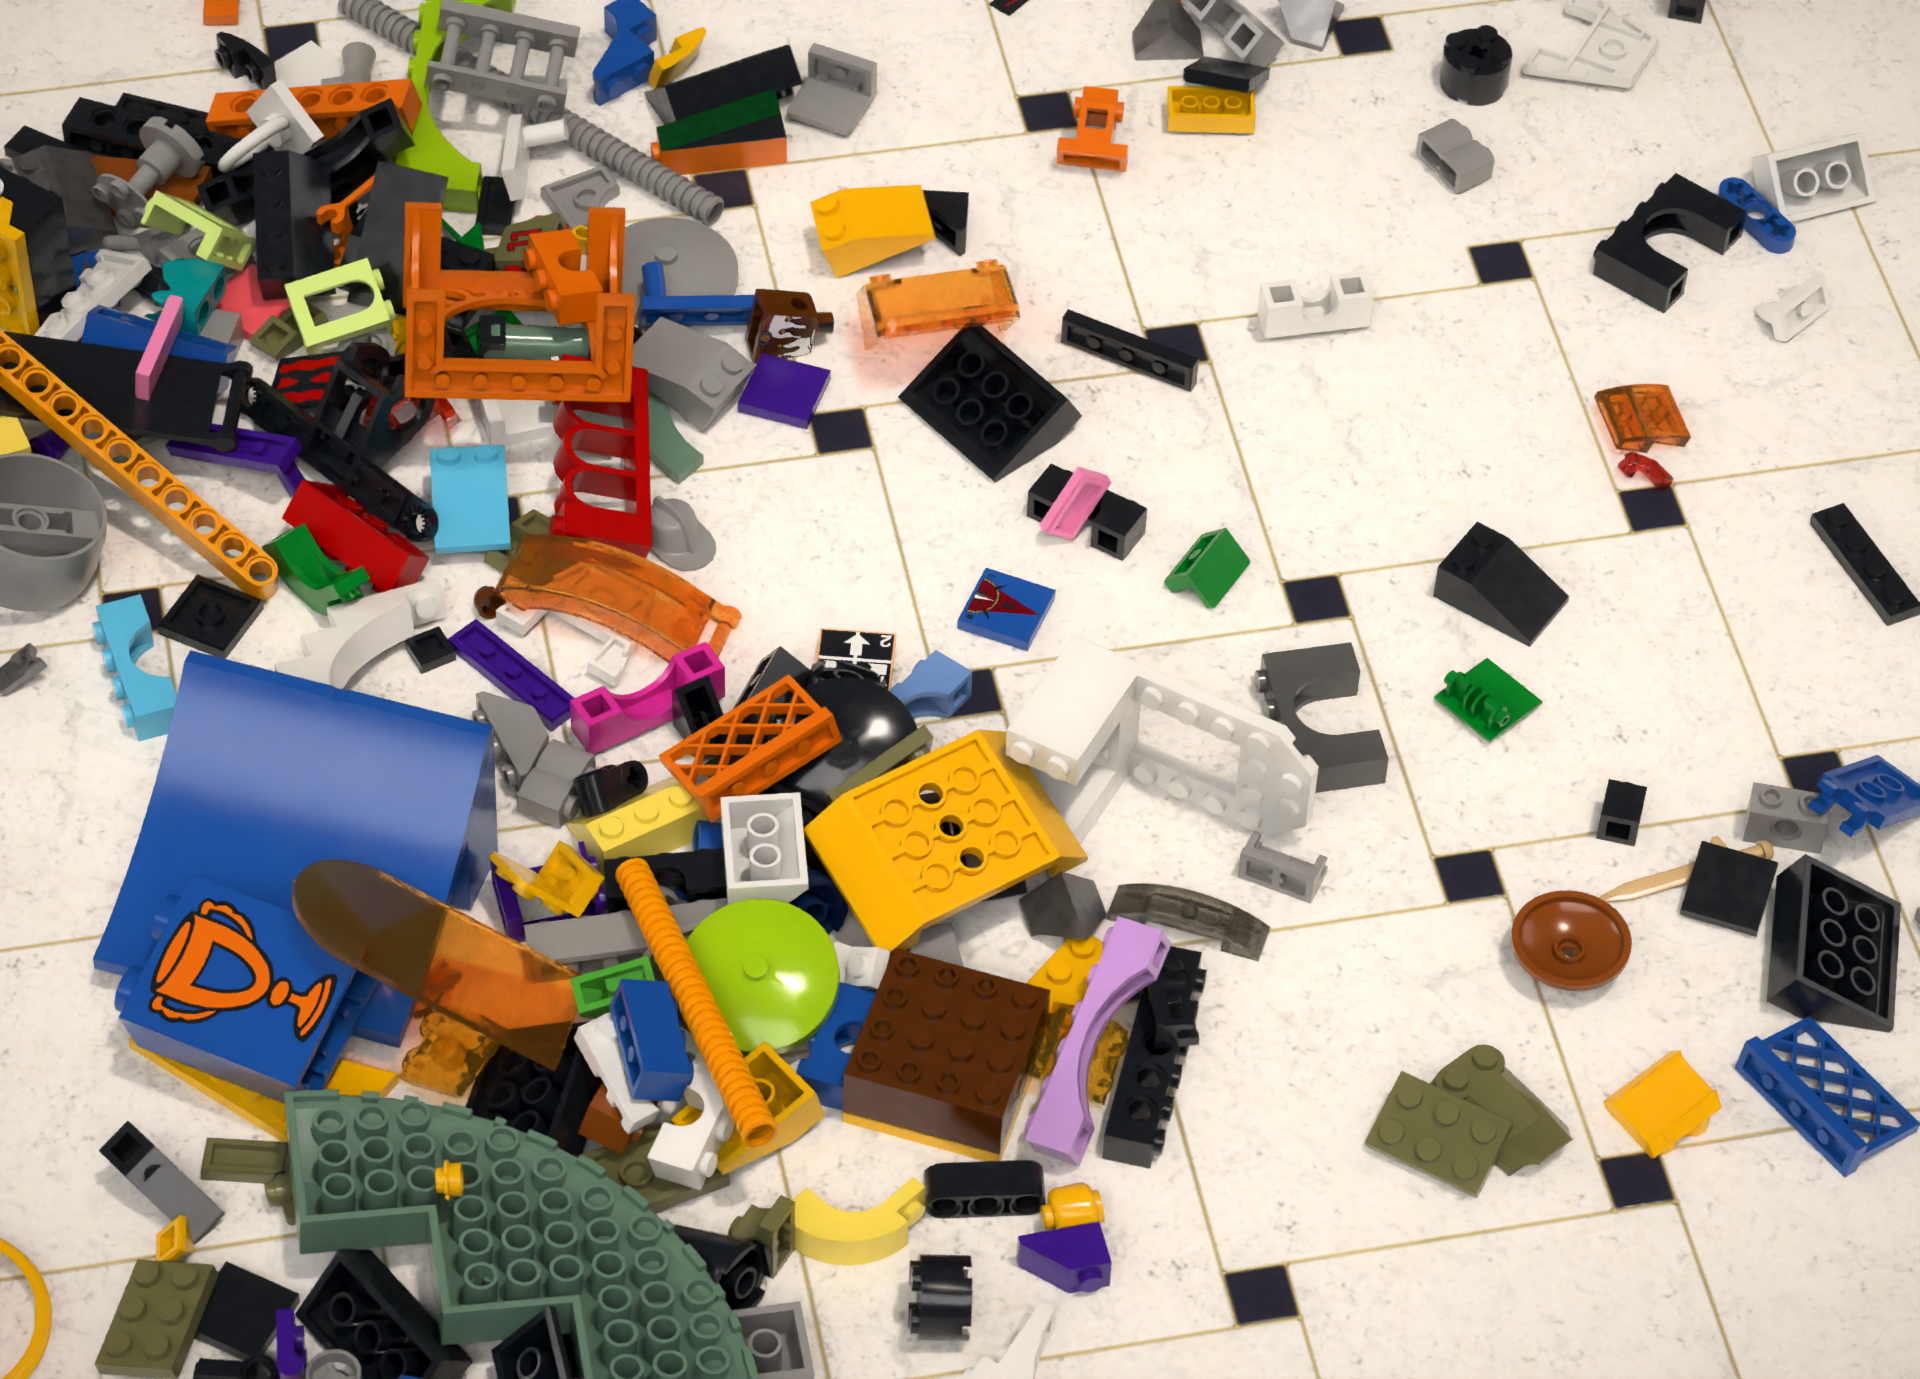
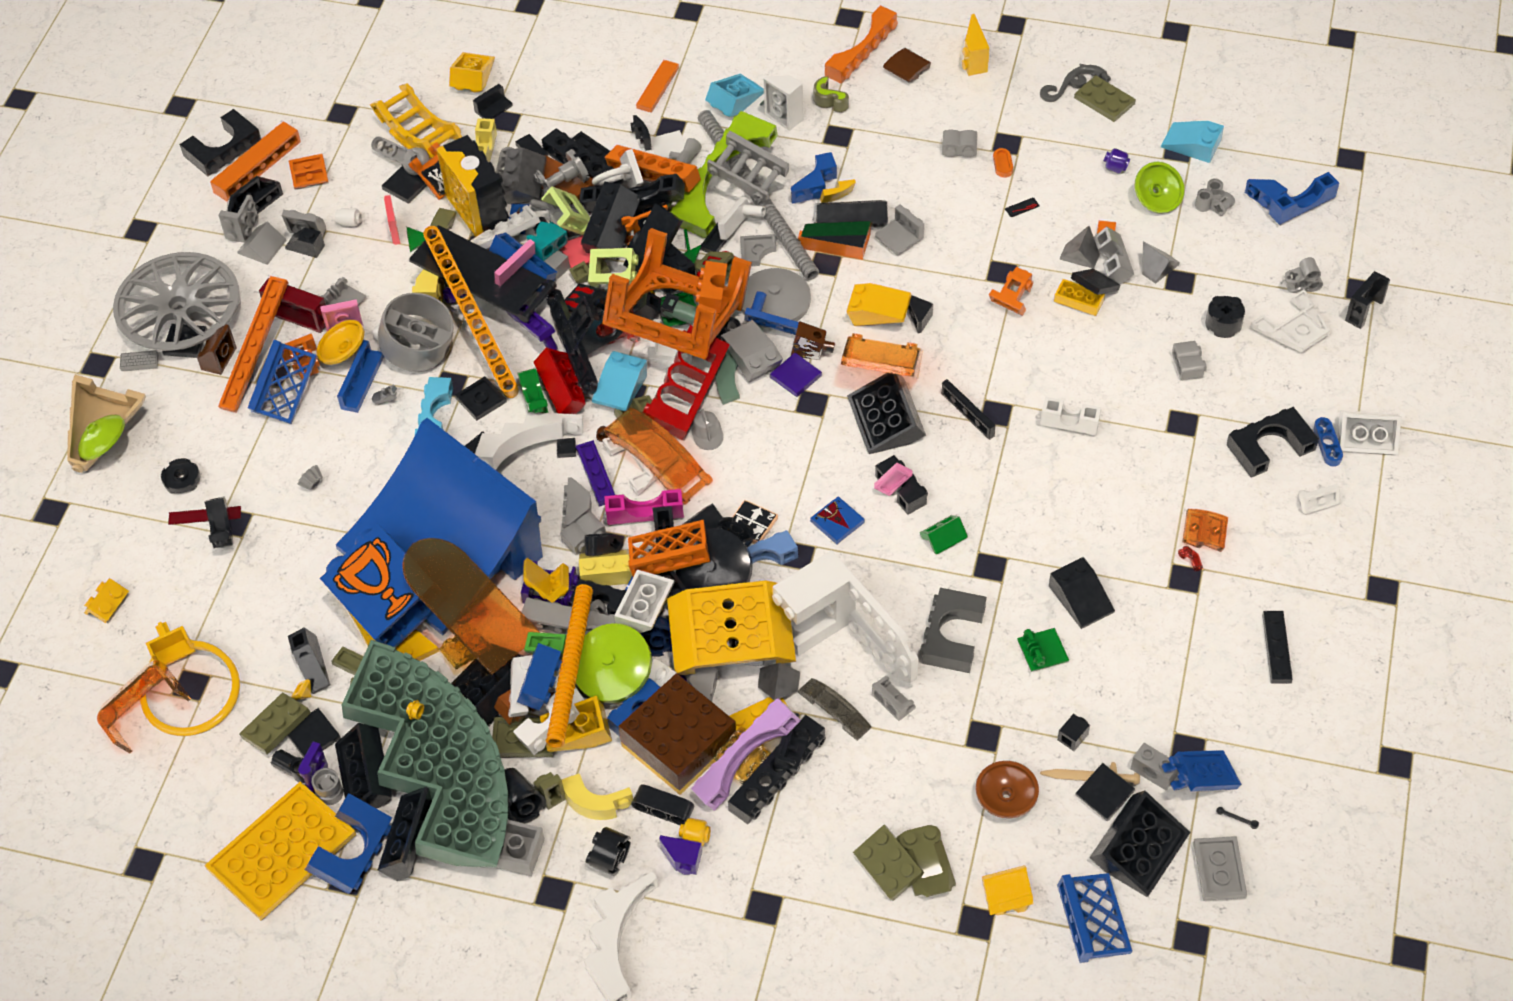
camera: 30 degrees right, 5 degrees up
(905, 751) = (733, 577): olive plate -> none

